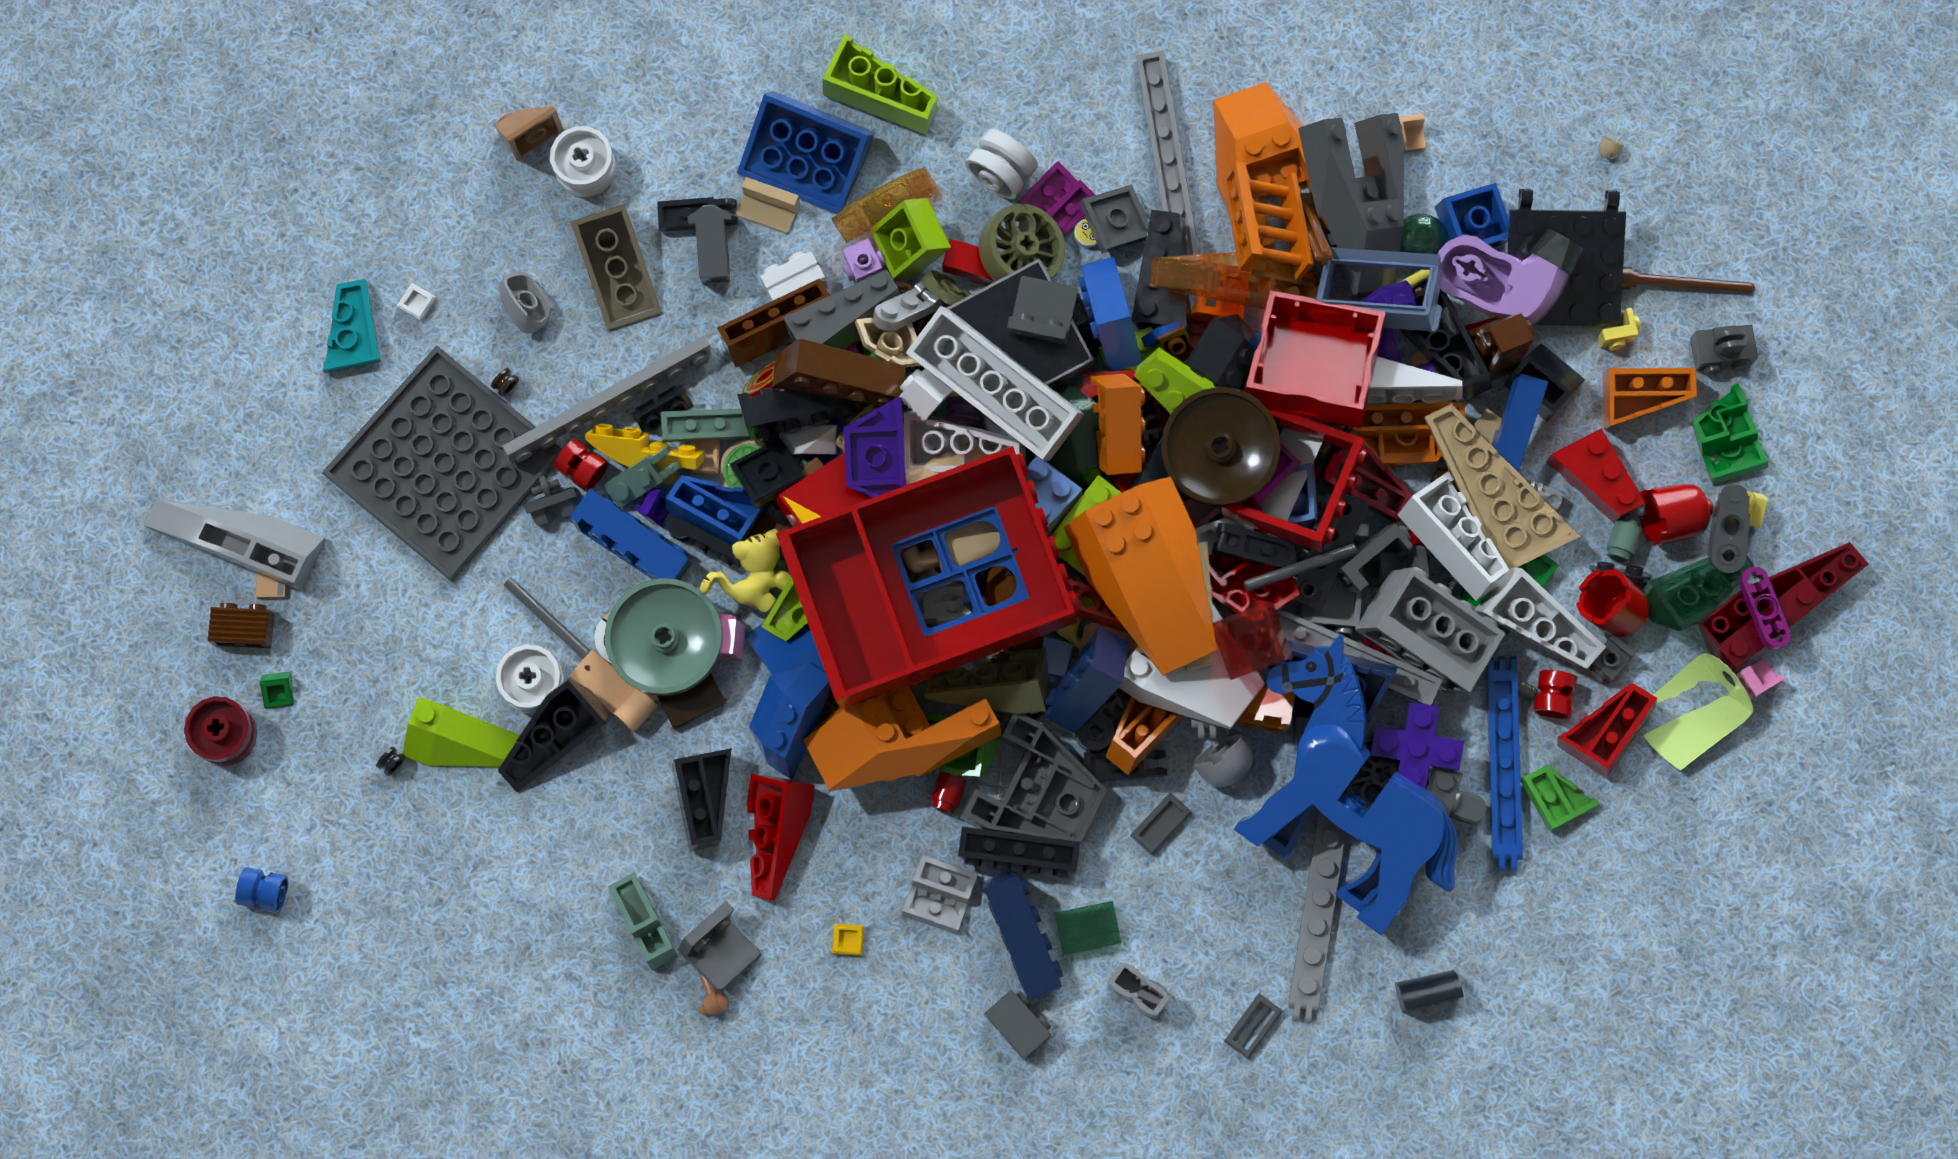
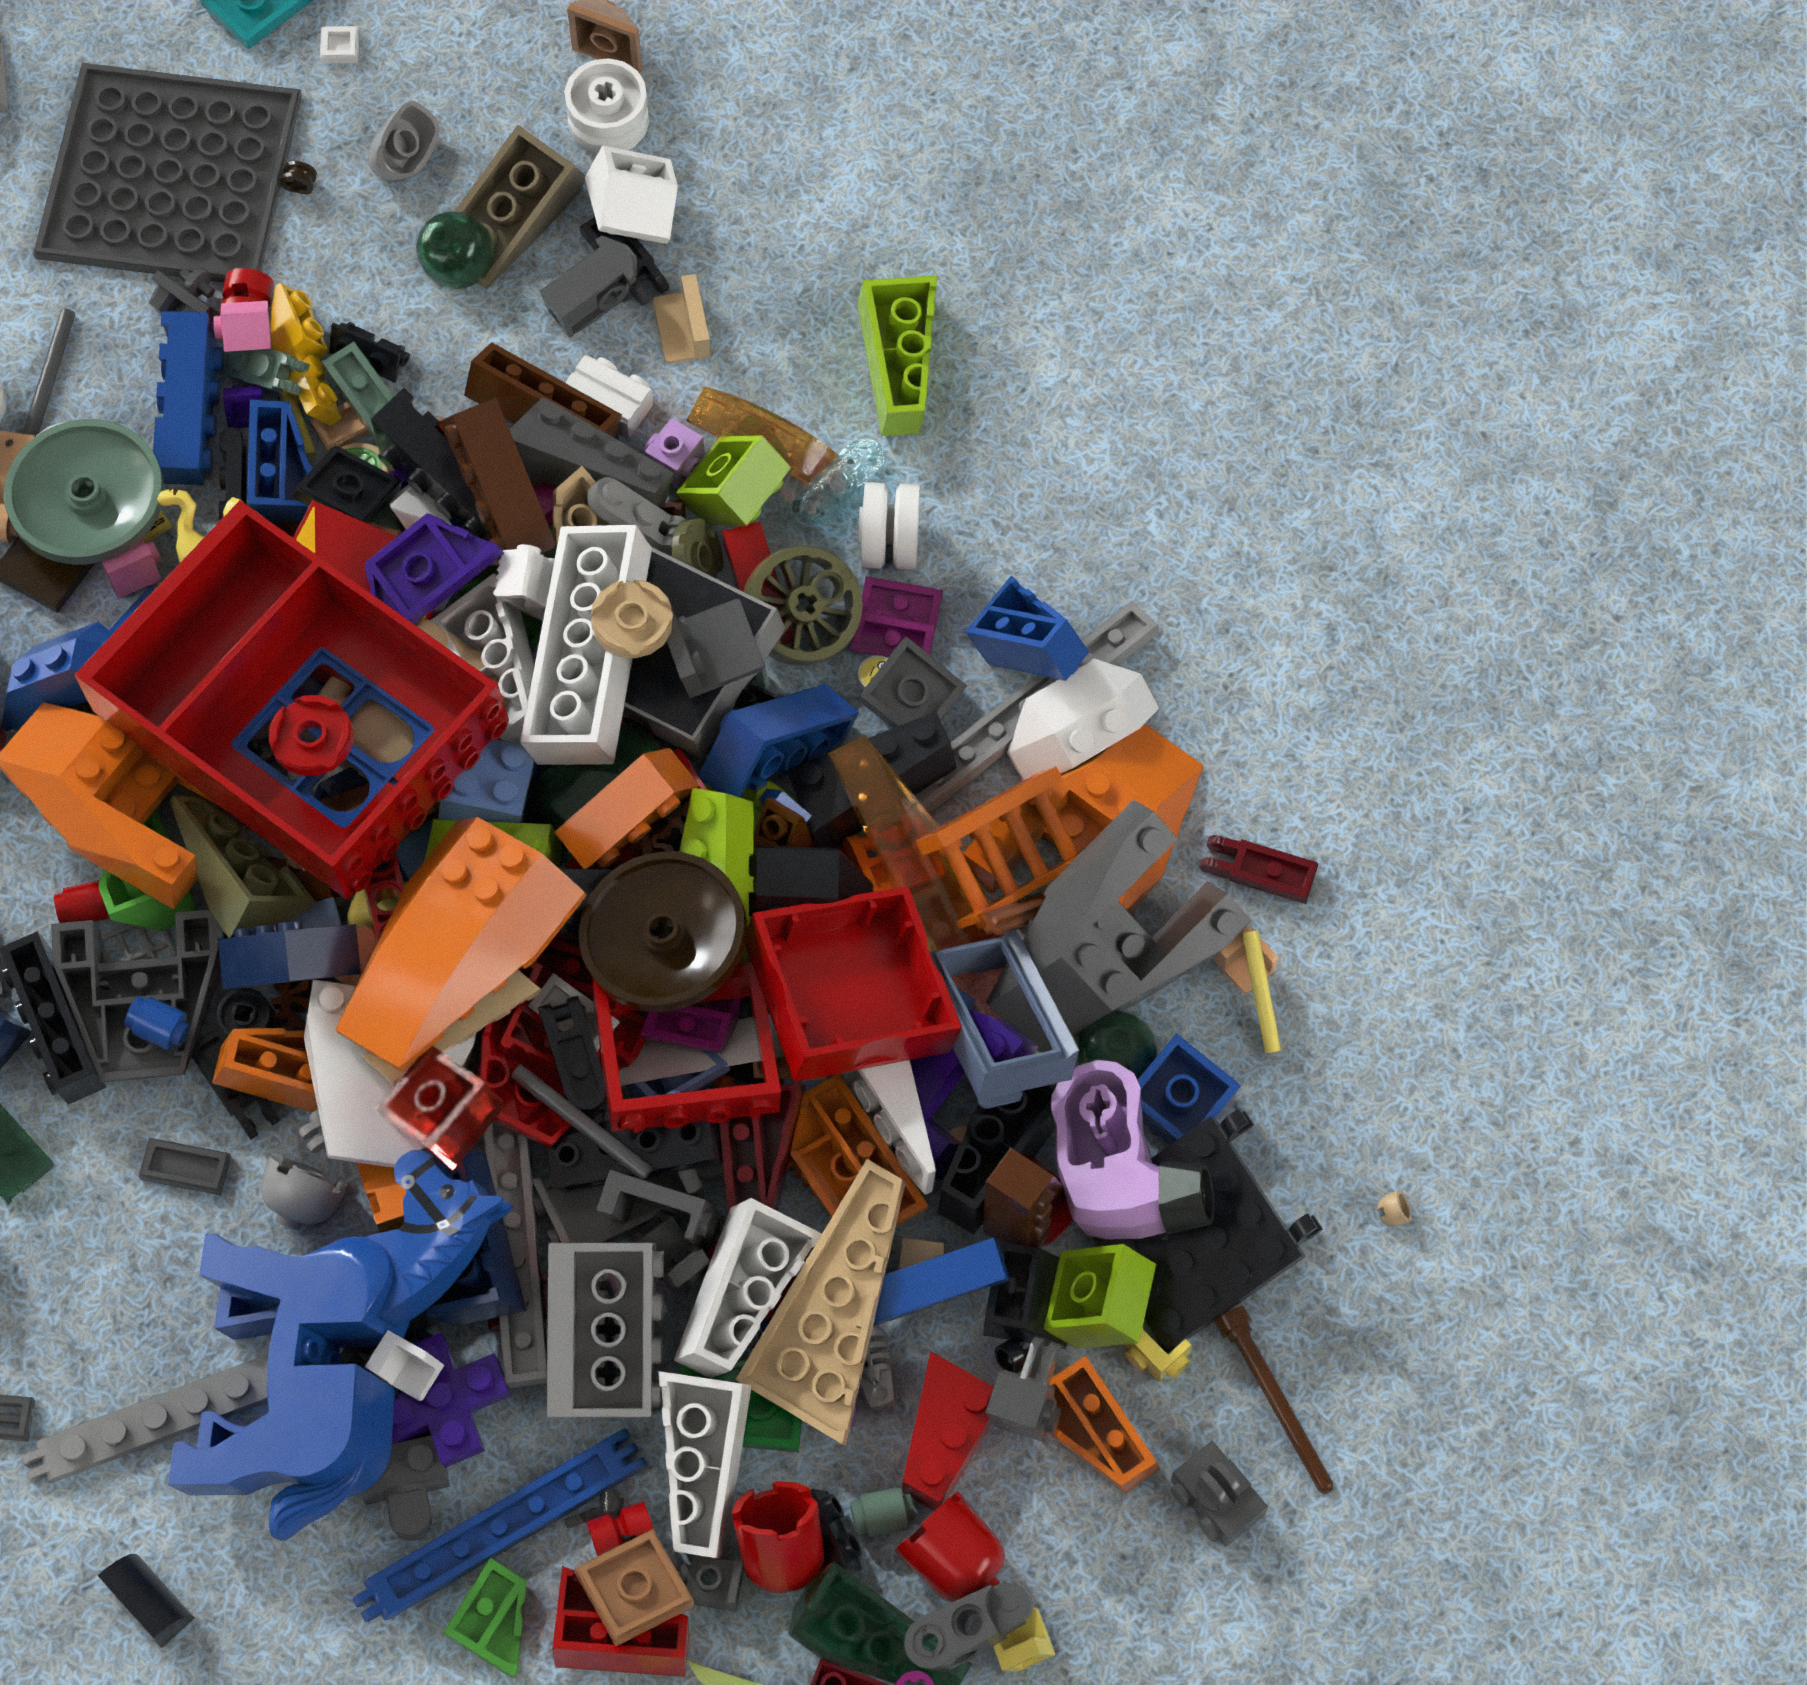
camera: 55 degrees right, 10 degrees down
(598, 405) = (330, 281): light grey plate -> none
(608, 472) = (243, 326): none -> bright pink brick
(625, 314) = (454, 249): none -> clear green cylinder
(664, 181) = (632, 194): none -> white slope
(805, 151) = (775, 321): blue slope -> none
(948, 196) = (855, 480): none -> clear light blue beam
(977, 594) = (317, 756): none -> red tile
(1007, 344) = (631, 618): none -> tan tile
(1072, 785) = (157, 1022): none -> blue brick
(1129, 127) = (1026, 634): none -> blue wedge
(1200, 134) = (1079, 717): none -> white wedge
(1356, 87) = (1262, 868): none -> dark red hinge
(1391, 756) = (404, 1366): none -> white panel
(1436, 136) = (1261, 991): none -> light yellow bar
(1572, 409) = (1014, 1349): none -> black hinge
(1575, 339) = (1100, 1296): none -> lime brick
(1600, 701) = (634, 1587): none -> medium nougat plate
(1624, 414) = (1027, 1403): none -> dark grey brick
(1730, 434) = (1112, 1568): green slope -> none

